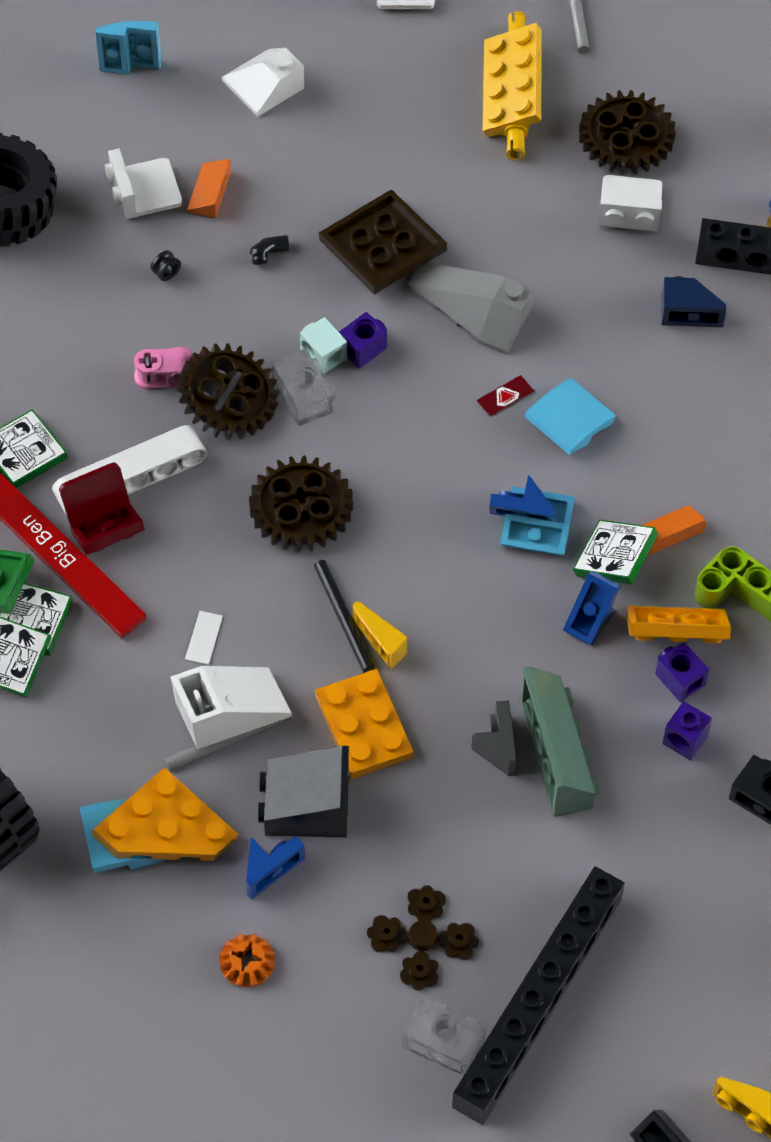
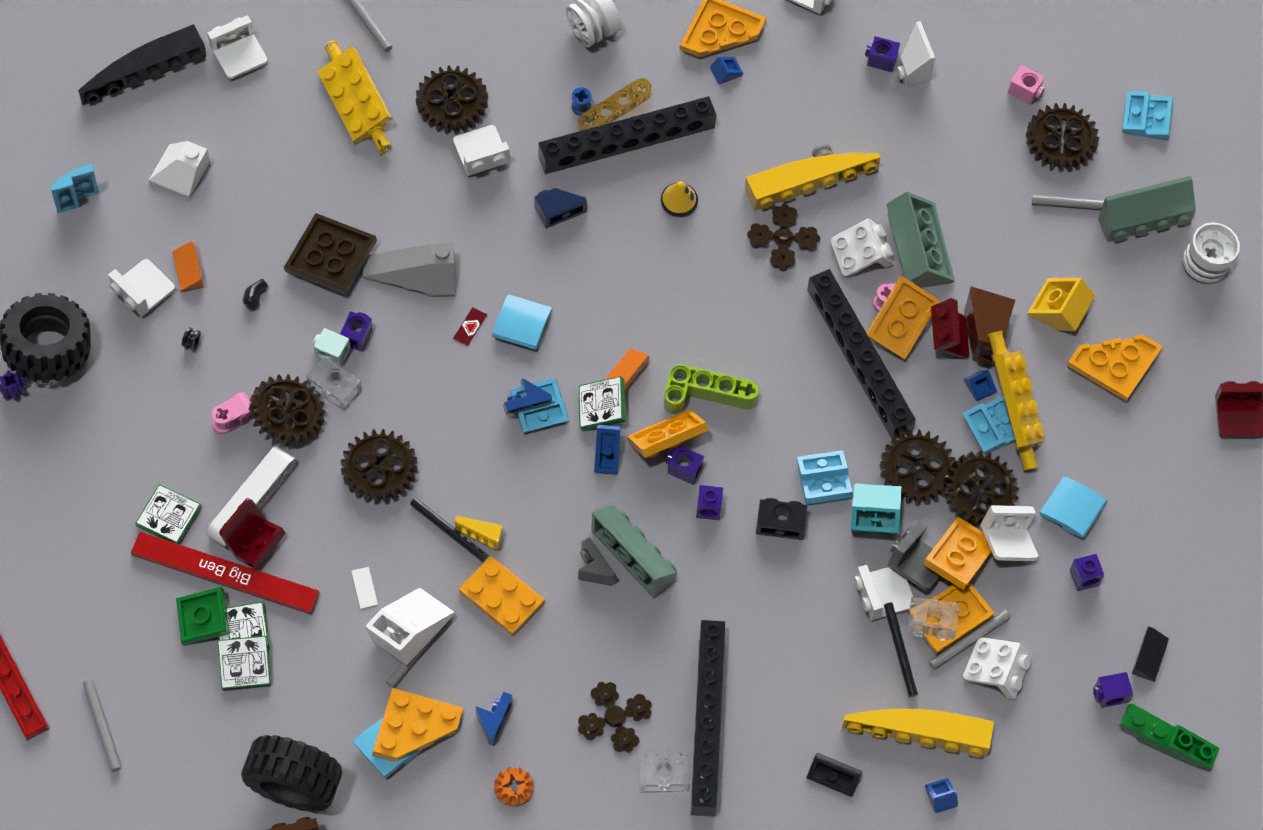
camera: 30 degrees left, 5 degrees up
(306, 794) = (494, 660): slope -> none

